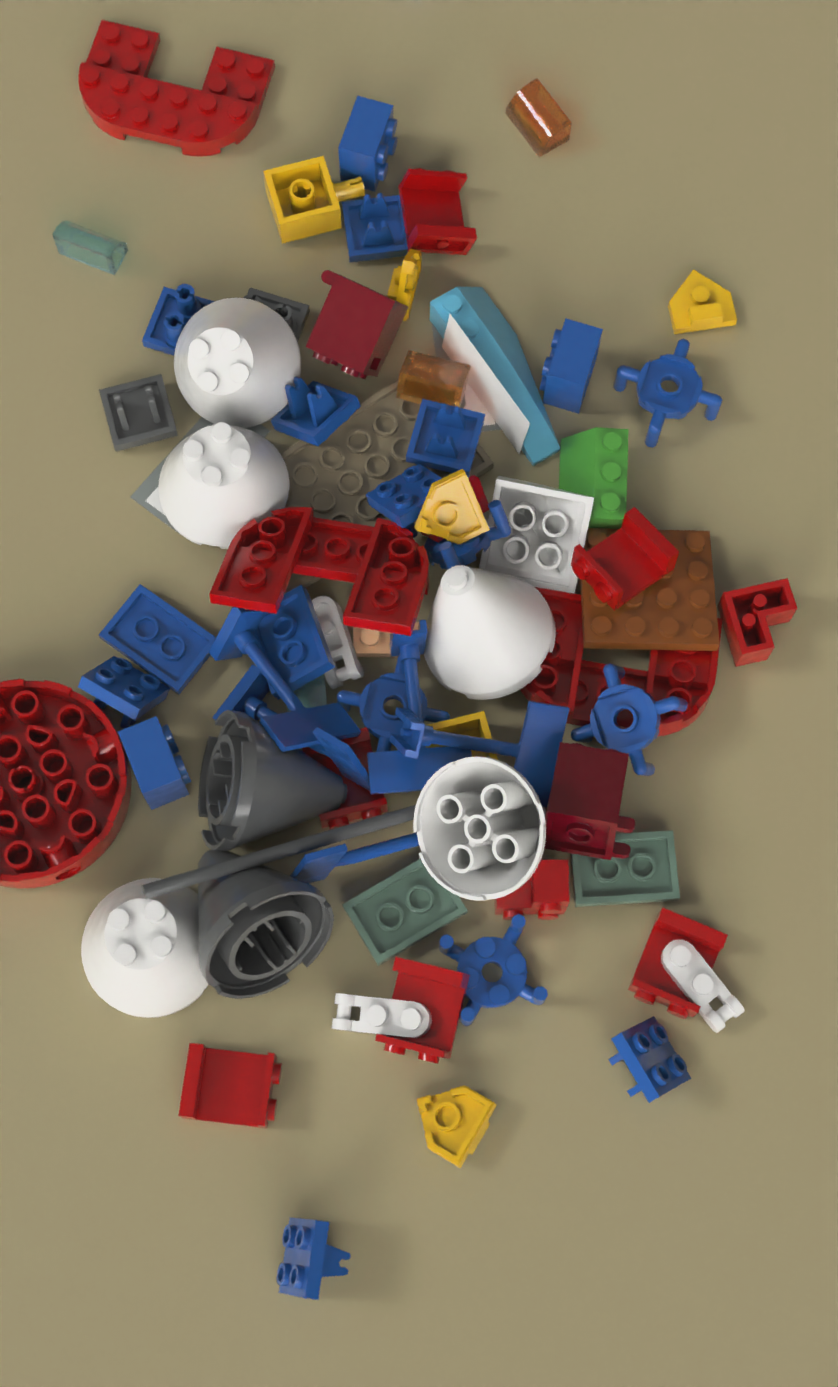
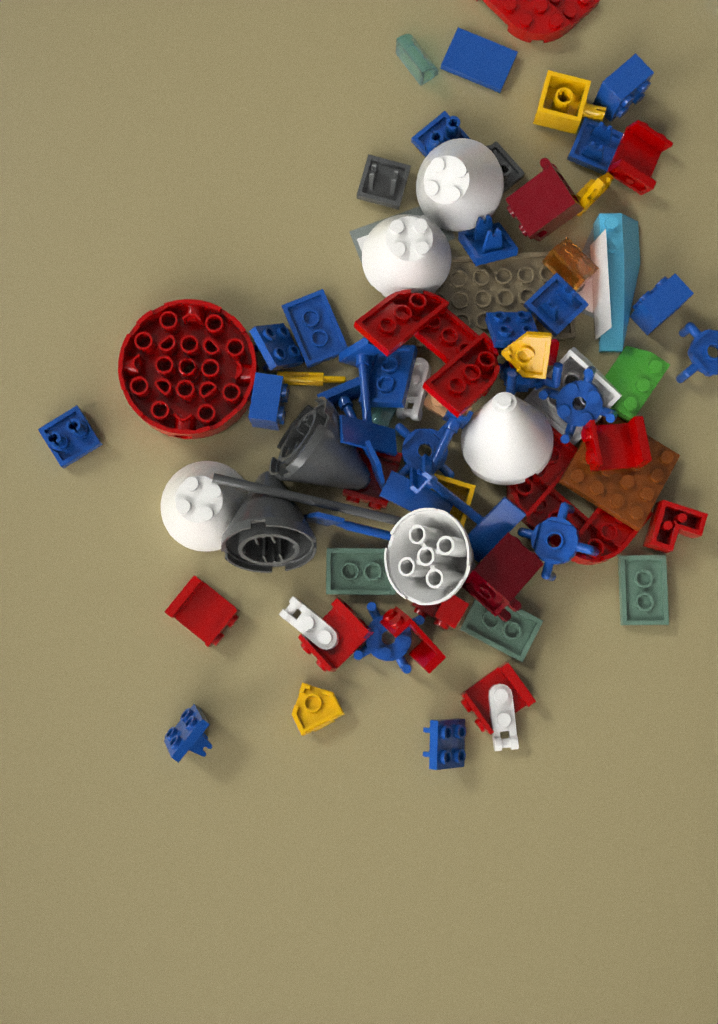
camera: 30 degrees right, 10 degrees up
(169, 206) = (479, 60): none -> blue tile
(192, 703) = (309, 378): none -> yellow axle
(548, 557) = (567, 410): none -> blue plate
(555, 956) = (426, 652): none -> red panel
(770, 719) = (643, 590): none -> sand green plate

